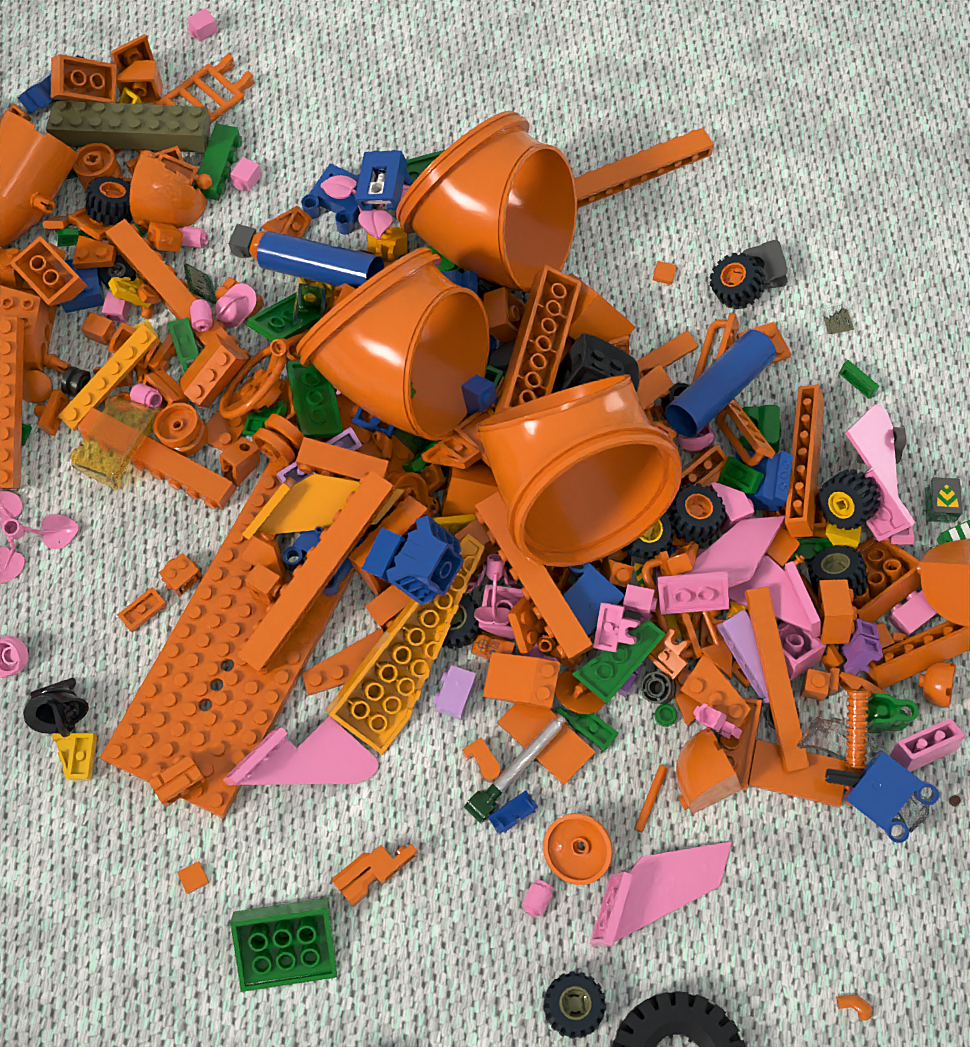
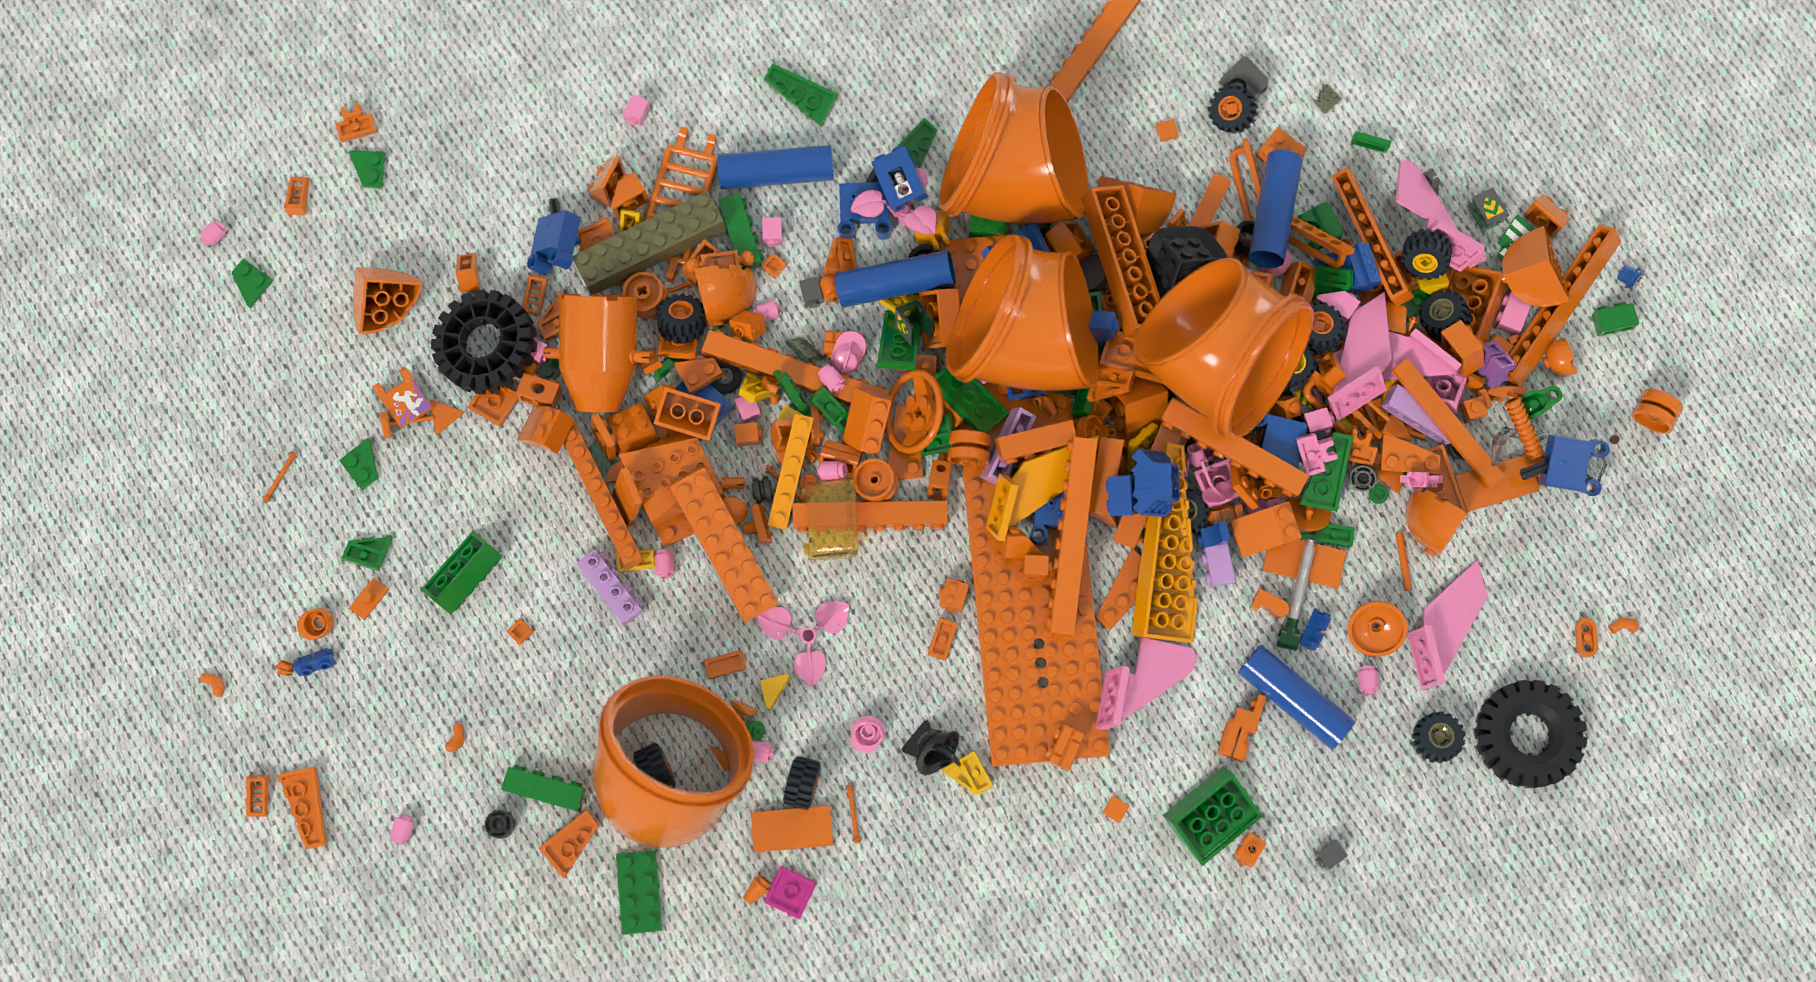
camera: 30 degrees left, 10 degrees up
(82, 79) = (590, 226): orange brick -> none
(159, 311) = (792, 392): none -> green hinge
(228, 204) = (773, 265): none -> orange tile
(281, 346) = (927, 372): orange piece -> none
(283, 122) = (775, 167): none -> blue piece
(307, 1000) = (1242, 853): none -> orange head
(354, 83) = (804, 94): none -> green wing
(447, 869) = (1297, 697): none -> blue piece
(468, 658) = (1213, 535): none -> blue arch
(805, 995) = (1588, 638): none -> orange plate
(928, 745) = (1577, 410): bright pink brick -> none

